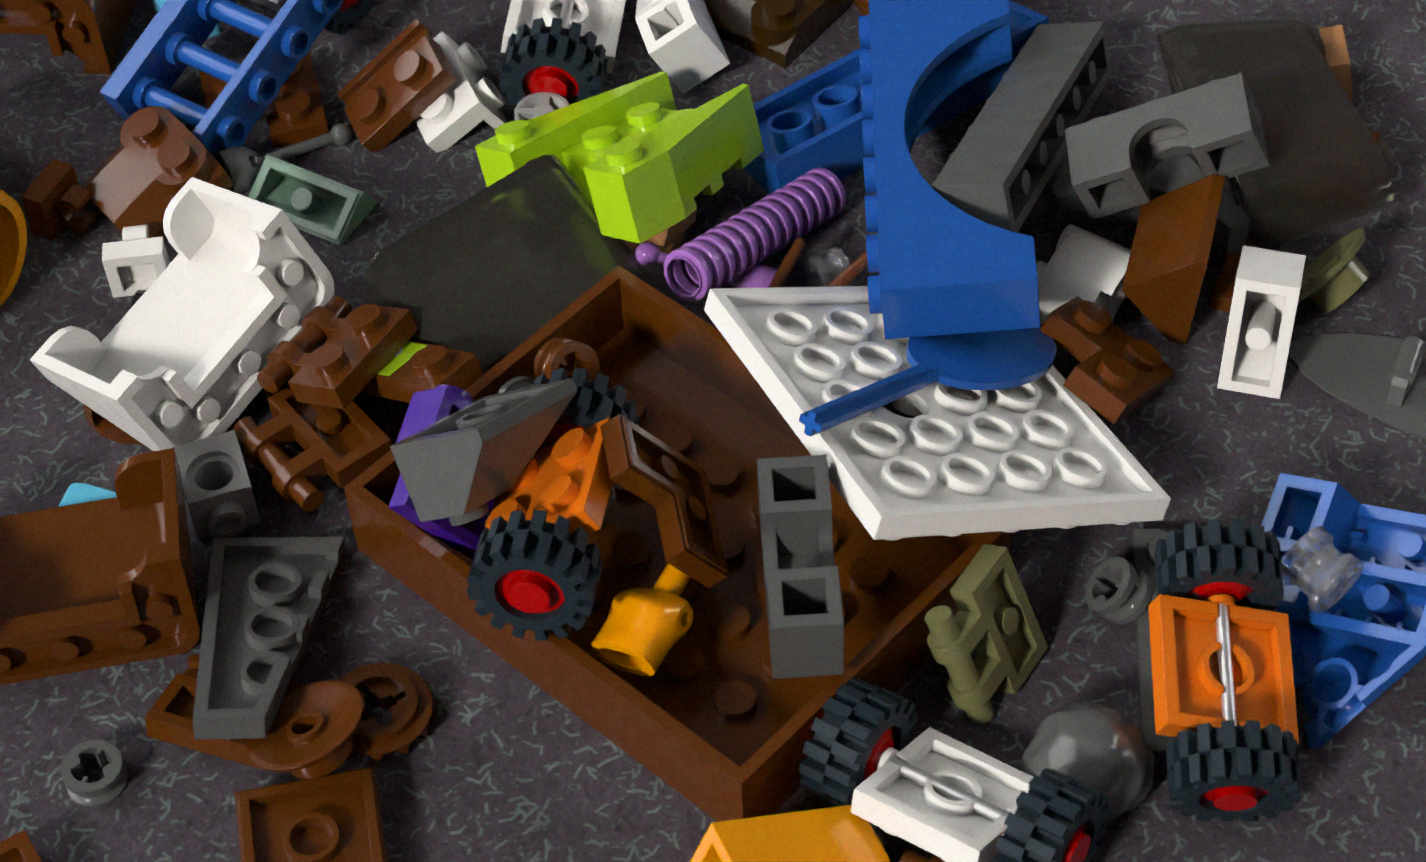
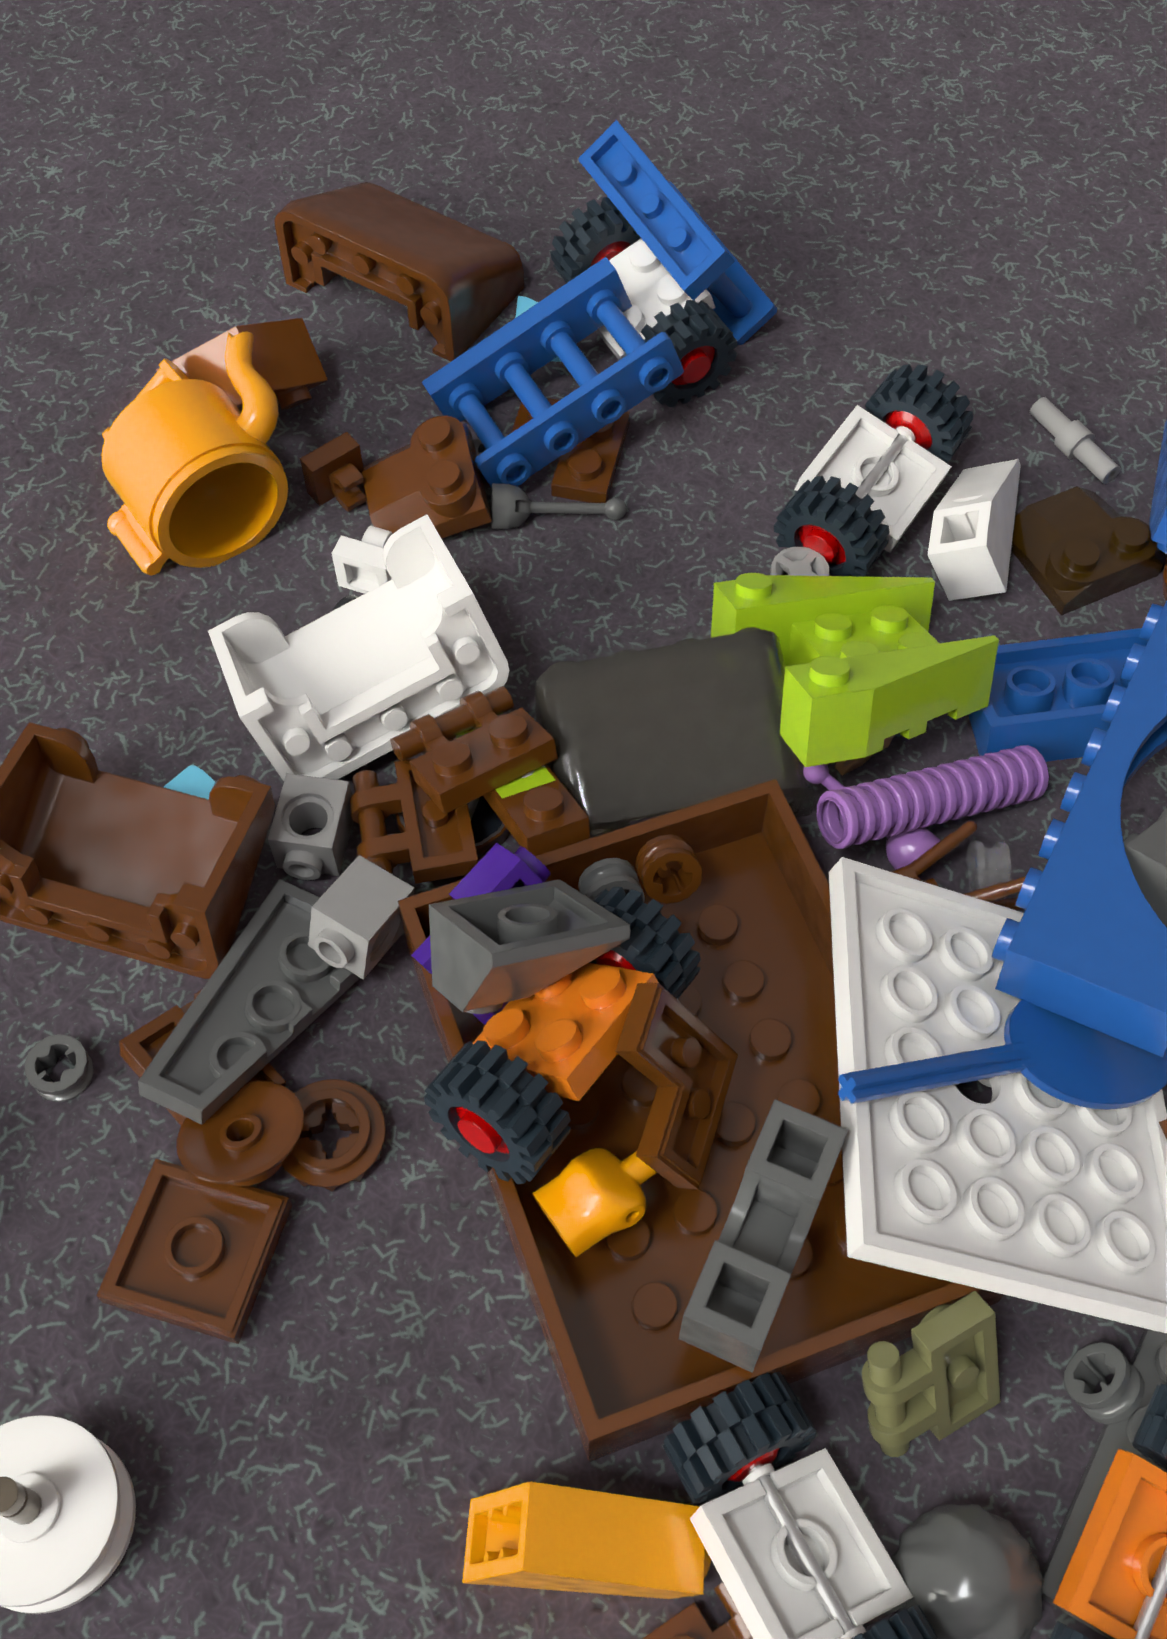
camera: 25 degrees right, 10 degrees up
(310, 526) = (358, 917): none -> light grey brick
(311, 200) = (551, 565): sand green slope -> none
(396, 86) = (683, 485): reddish brown plate -> none
(464, 102) = (731, 509): white bracket -> none

